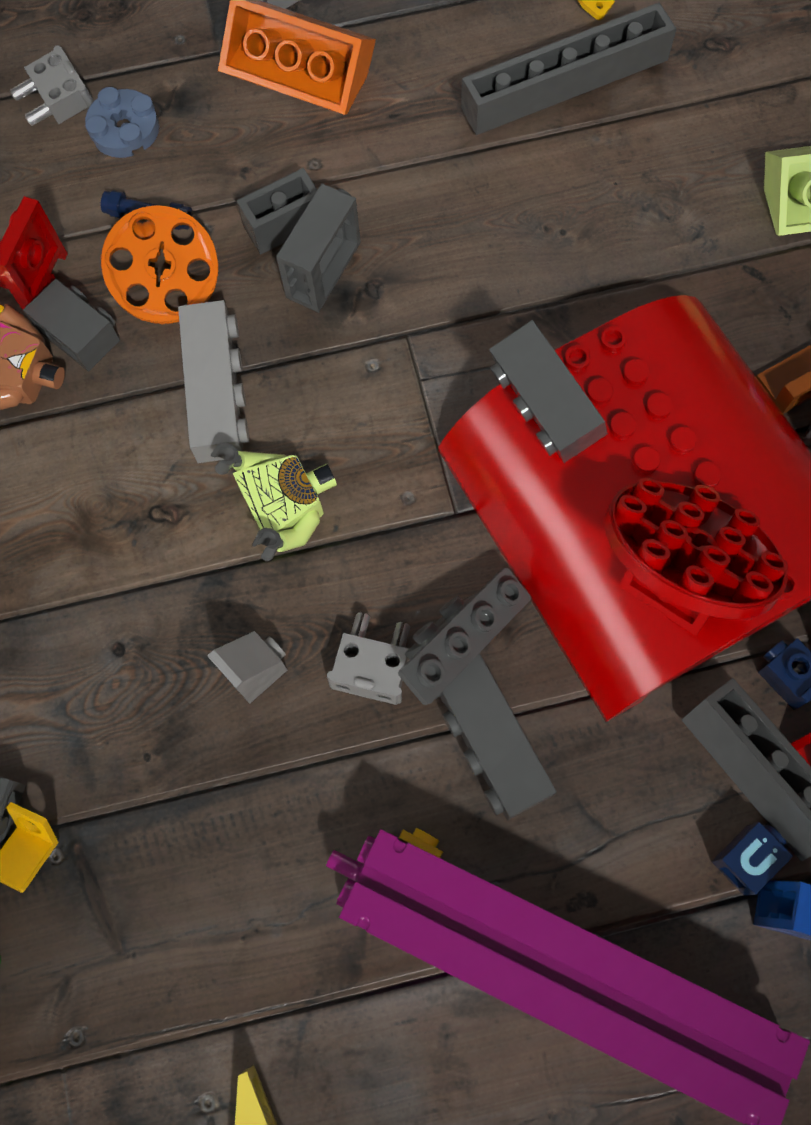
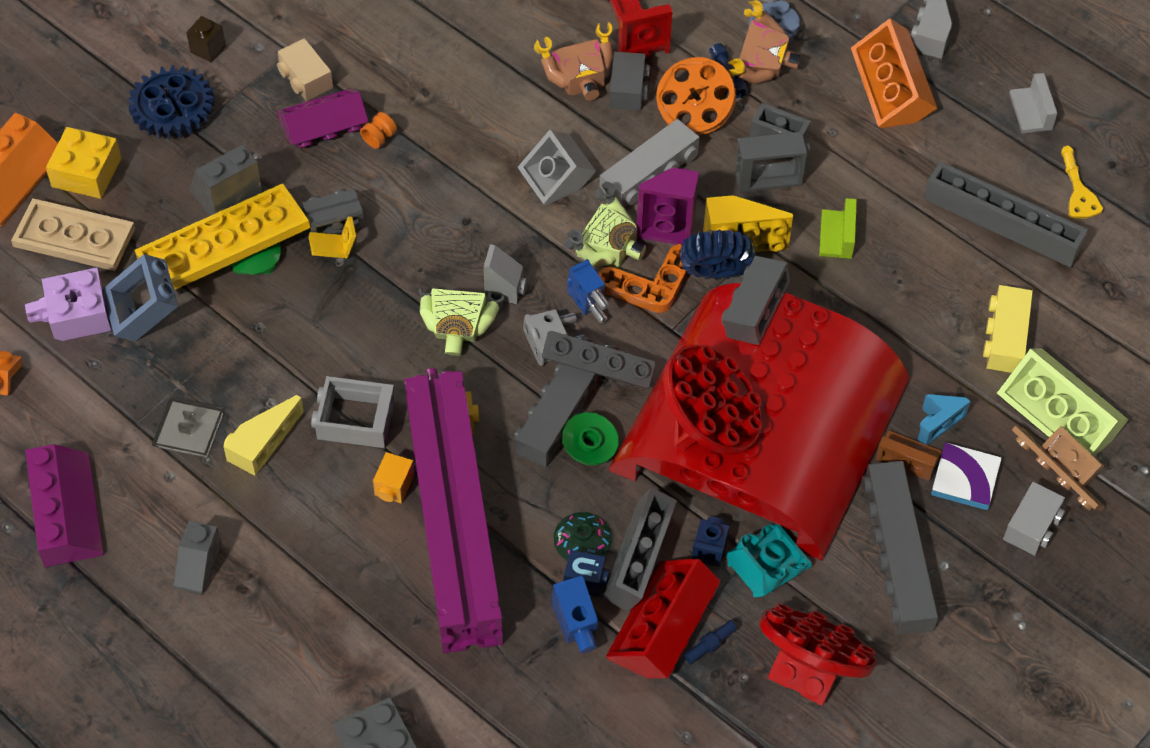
camera: 50 degrees right, 15 degrees down
(130, 490) = (556, 167): none -> light grey slope
(154, 149) = (763, 49): none -> nougat torso
(262, 763) = (458, 315): none -> yellowish green torso
(263, 1028) = (356, 391): none -> light grey window
(310, 394) = (667, 206): none -> magenta slope
(346, 574) = (587, 290): none -> blue piece
(386, 339) = (762, 224): none -> yellow slope
(389, 489) = (656, 288): none -> orange beam
(414, 391) = (717, 254): none -> dark blue gear
(452, 1019) = (393, 478): none -> light orange brick
(457, 243) = (838, 231): none -> lime panel
(575, 710) = (594, 429): none -> green dish
(664, 824) = (595, 542): none -> clear green dish
(713, 166) = (1007, 328): none -> light yellow brick
(786, 307) = (942, 415): none -> dark azure slope

